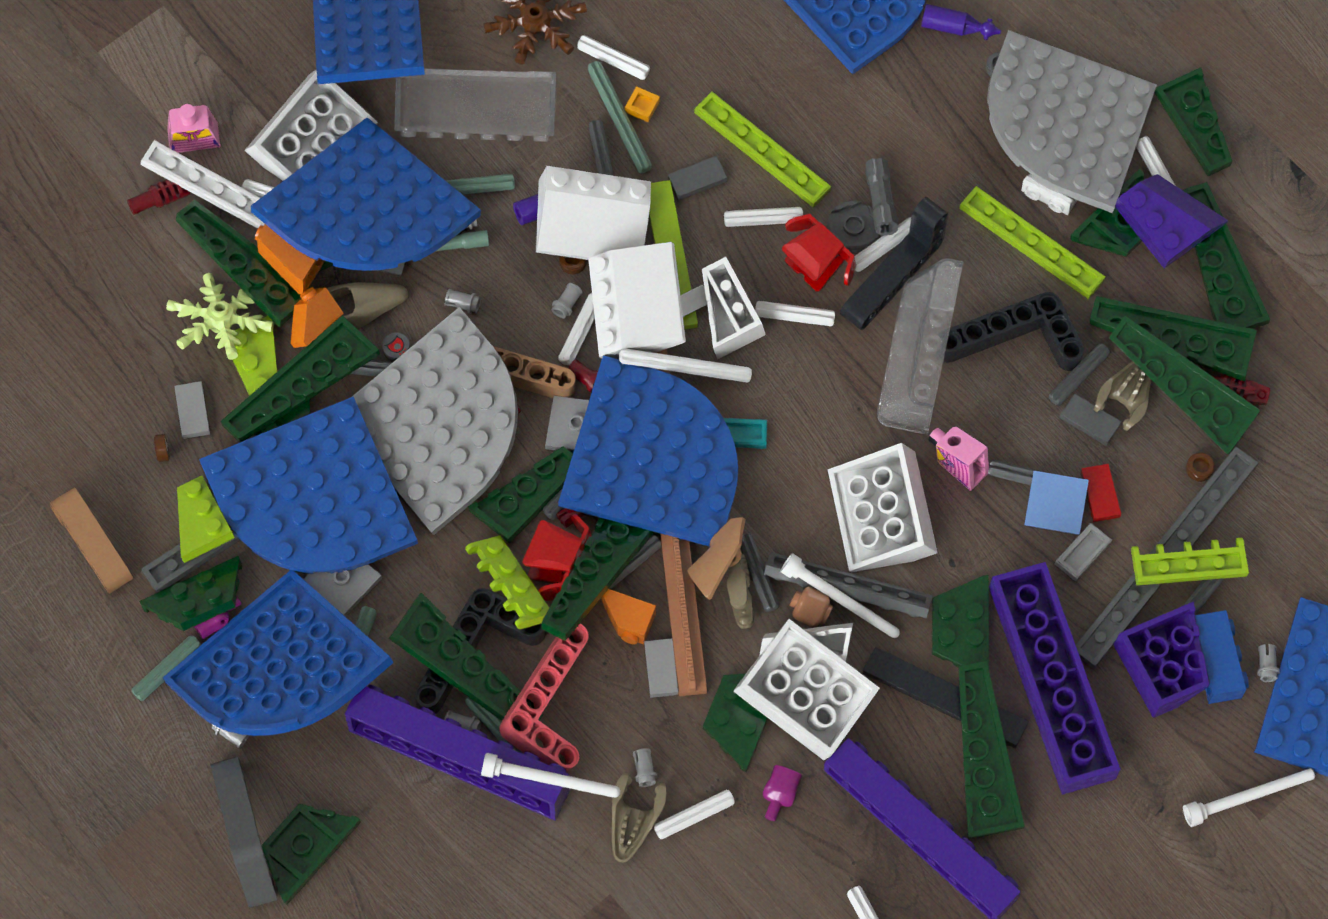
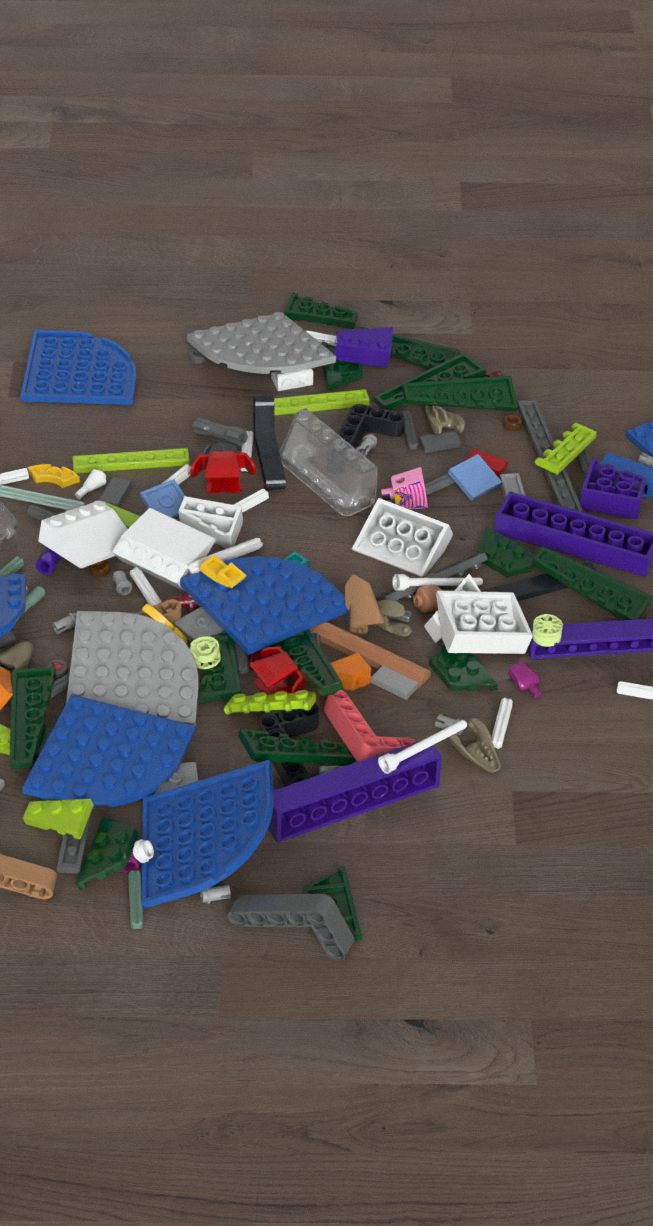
camera: 50 degrees left, 25 degrees down
(213, 630) = (143, 850): none -> white plate
(525, 464) = (205, 650): none -> yellowish green wheel
(527, 399) = (154, 614): none -> yellow tile
(640, 389) = (224, 574): none -> yellow slope
(642, 104) = (44, 484): light orange plate -> none
(672, 98) = (46, 473): none -> yellow tile
(689, 145) = (95, 480): none -> white cone
(722, 236) = (164, 498): none -> medium blue tile
(849, 764) = (547, 632): none -> yellowish green wheel
(956, 22) = (153, 352): dark purple wheel -> none
(1009, 352) = (369, 441): none -> light grey pin

